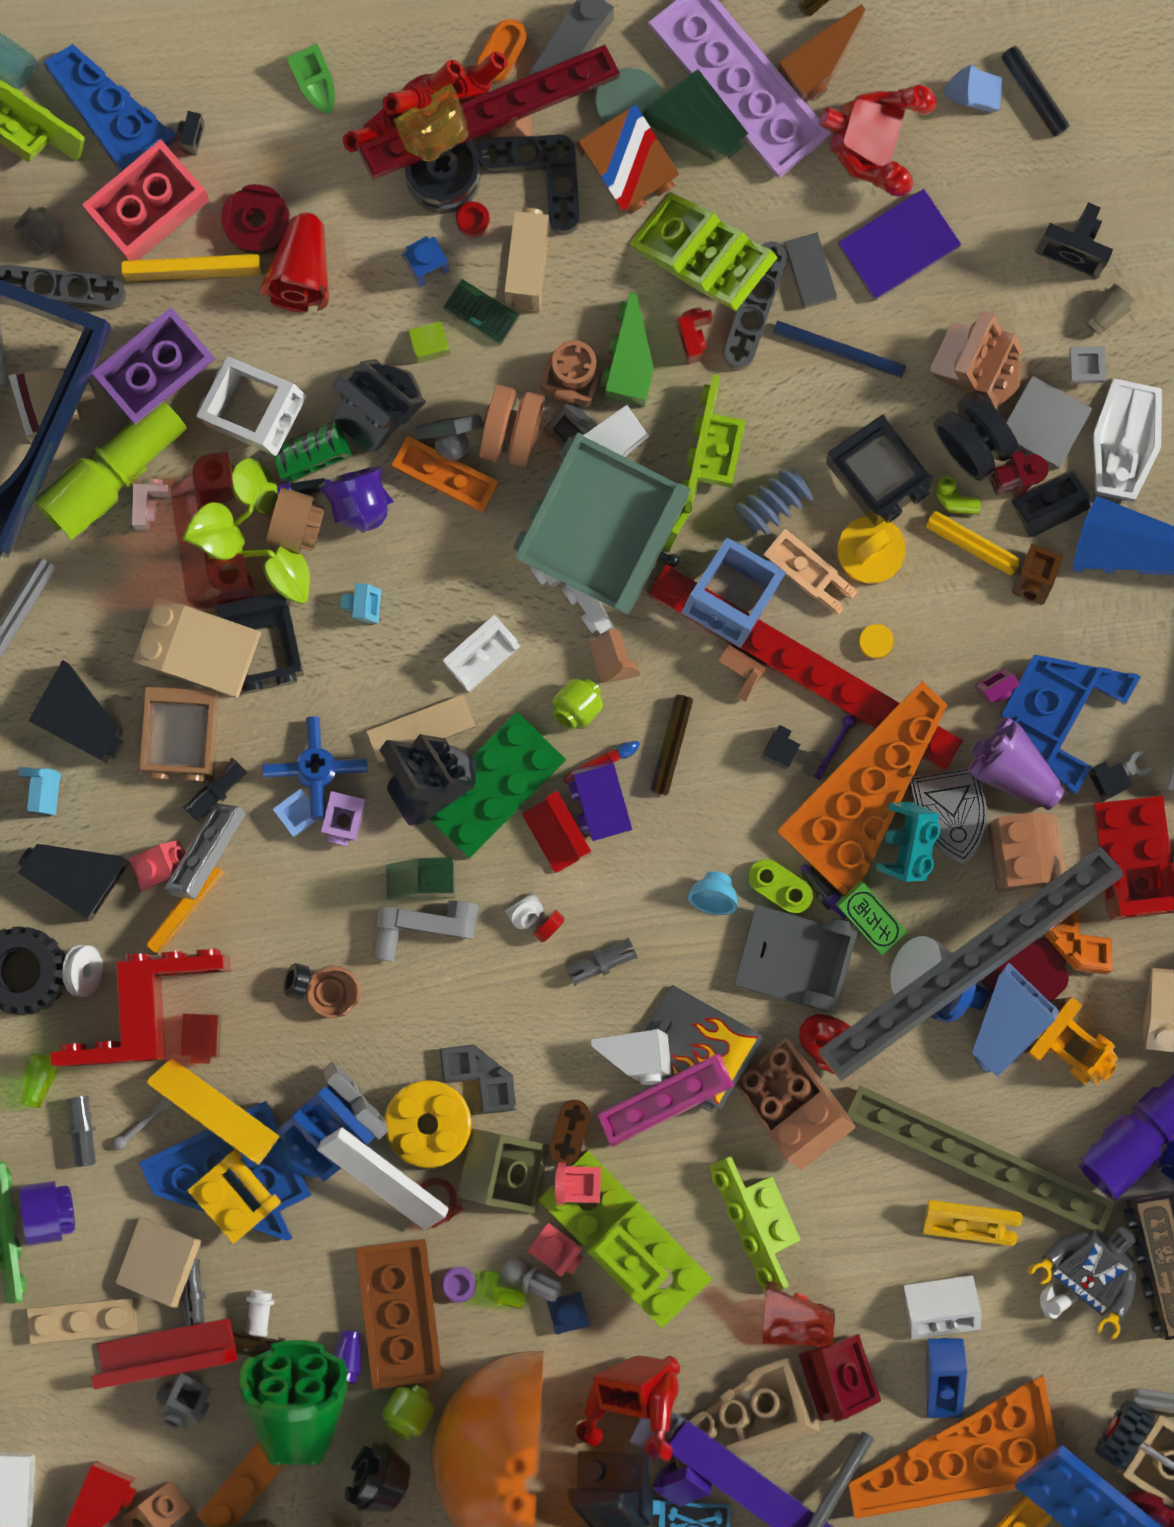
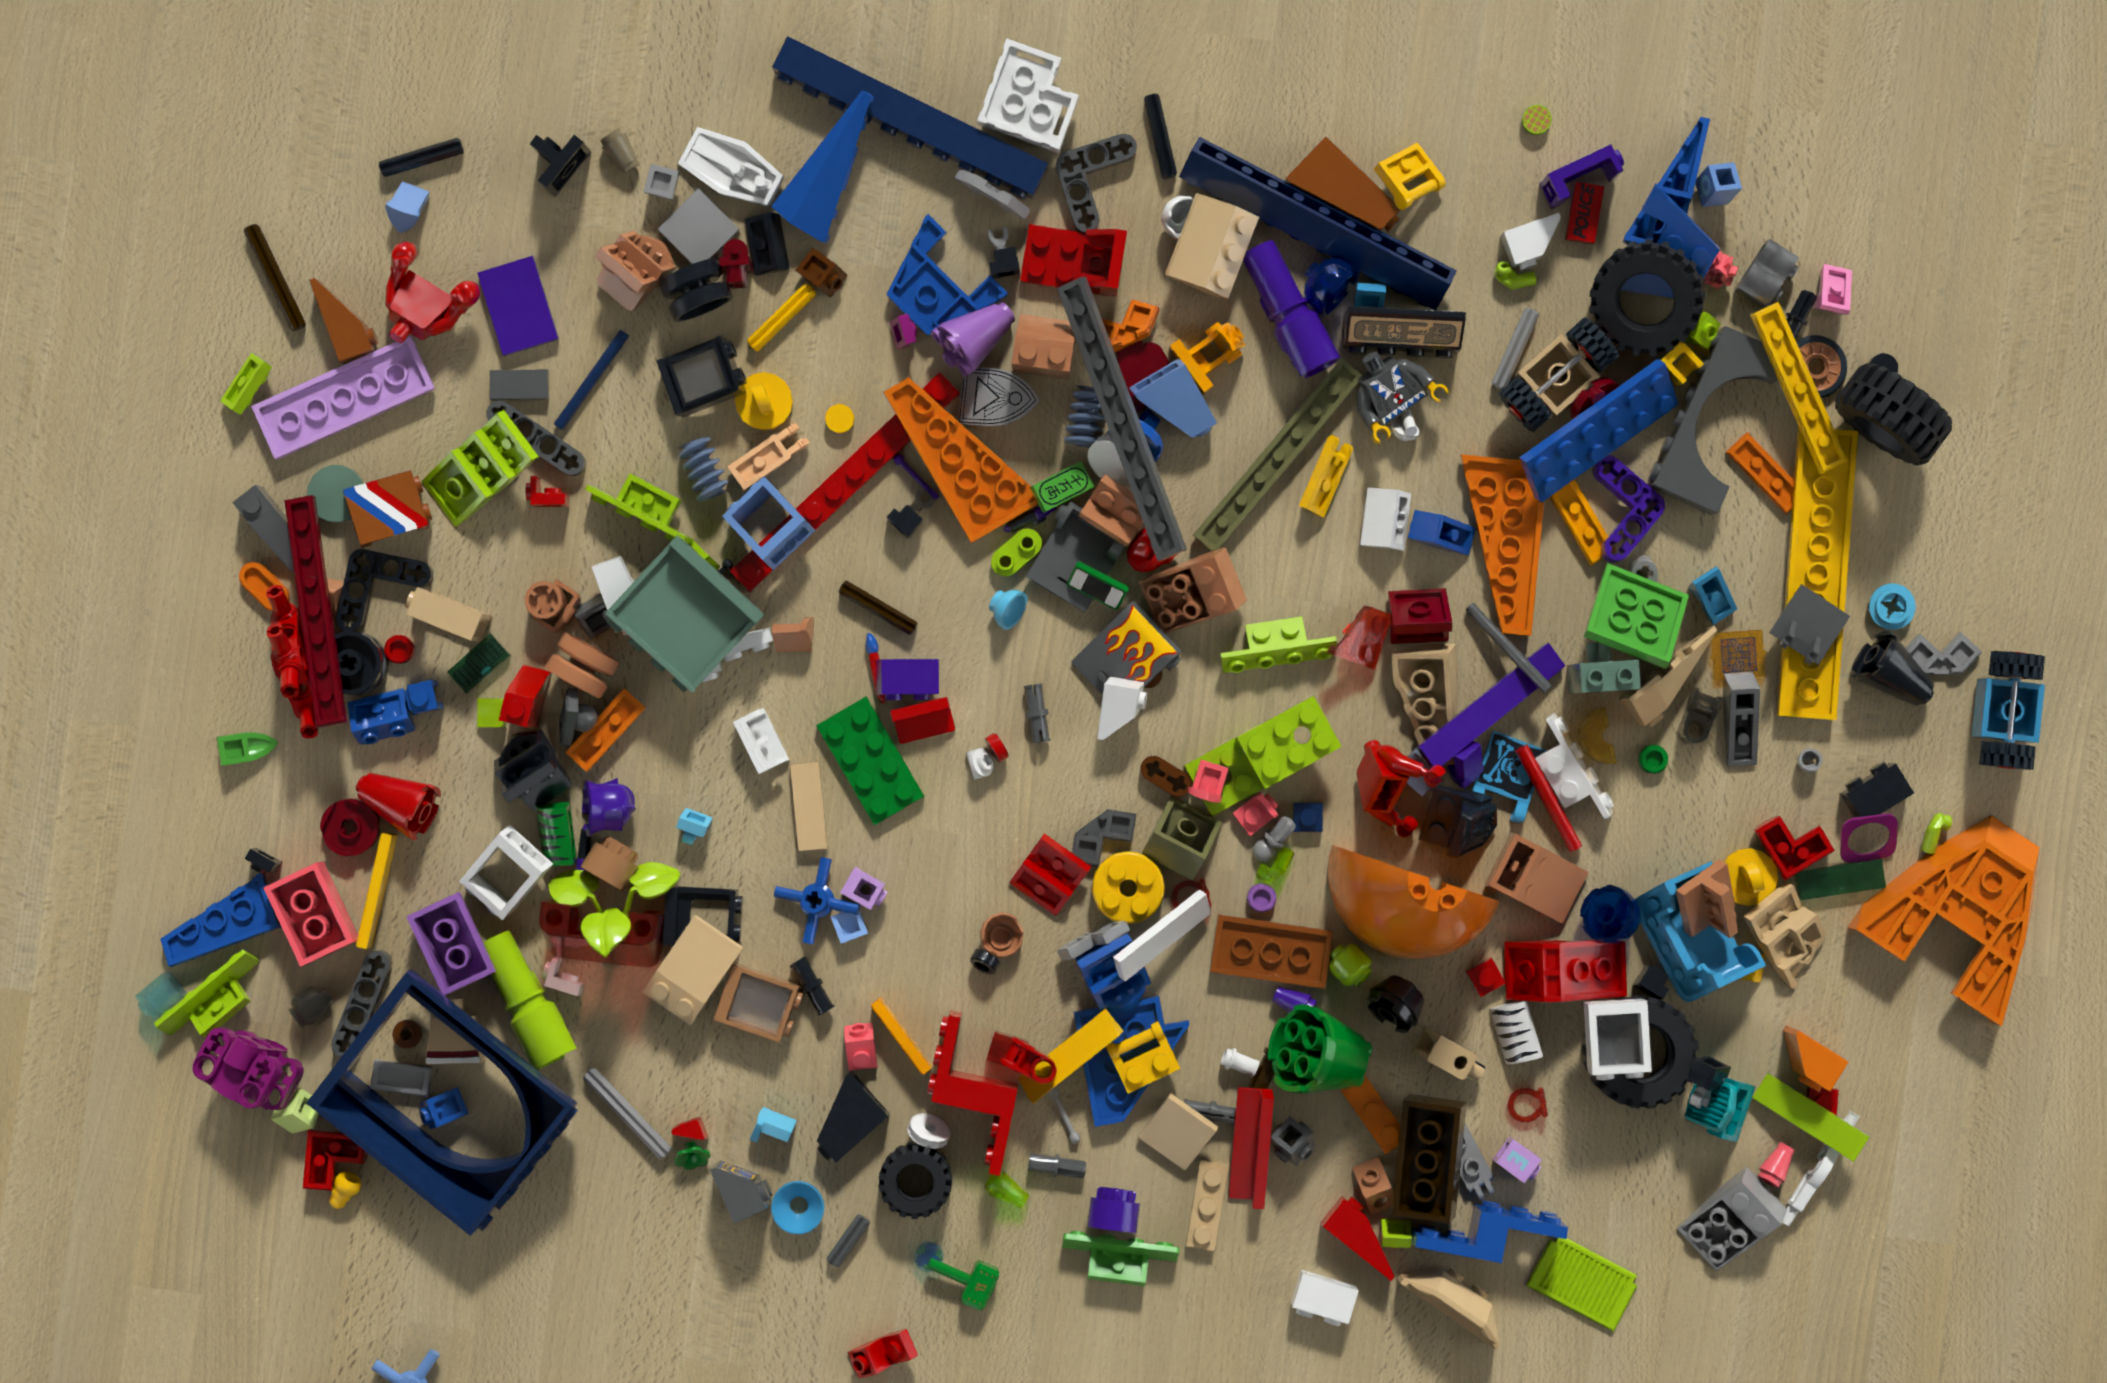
camera: 70 degrees left, 5 degrees up
(13, 697) = (691, 1129): none -> red slope
(44, 354) = (416, 1032): none -> reddish brown plate
(77, 716) = (721, 1081): black slope -> none
(194, 1061) = (1027, 1060): none -> red piece
(205, 851) = (860, 1007): light grey tile -> none
(389, 218) = (380, 717): none -> blue bracket
(418, 1029) = (1050, 874): none -> red slope
(422, 878) = (931, 839): clear green slope -> none
(427, 776) = (849, 811): black piece -> none
(434, 128) = (319, 660): clear yellow cylinder -> none
(456, 373) = (525, 697): none -> red slope
(458, 922) = (973, 819): light grey beam -> none
(577, 704) = (823, 674): lime head -> none
(631, 1262) = (1283, 756): lime plate -> none
(632, 364) = (557, 552): bright green slope -> none
(665, 1100) = (1162, 693): dark pink tile -> none
(697, 118) = (367, 441): clear green slope -> none
(745, 666) = (830, 531): nougat tile -> none
(768, 990) = (1097, 585): none -> slope
(860, 984) = (1113, 511): none -> nougat bracket
(915, 842) = (1010, 435): teal window -> none
(953, 500) = (741, 323): lime arm -> none
(957, 922) = (1085, 418): none -> sand blue piece

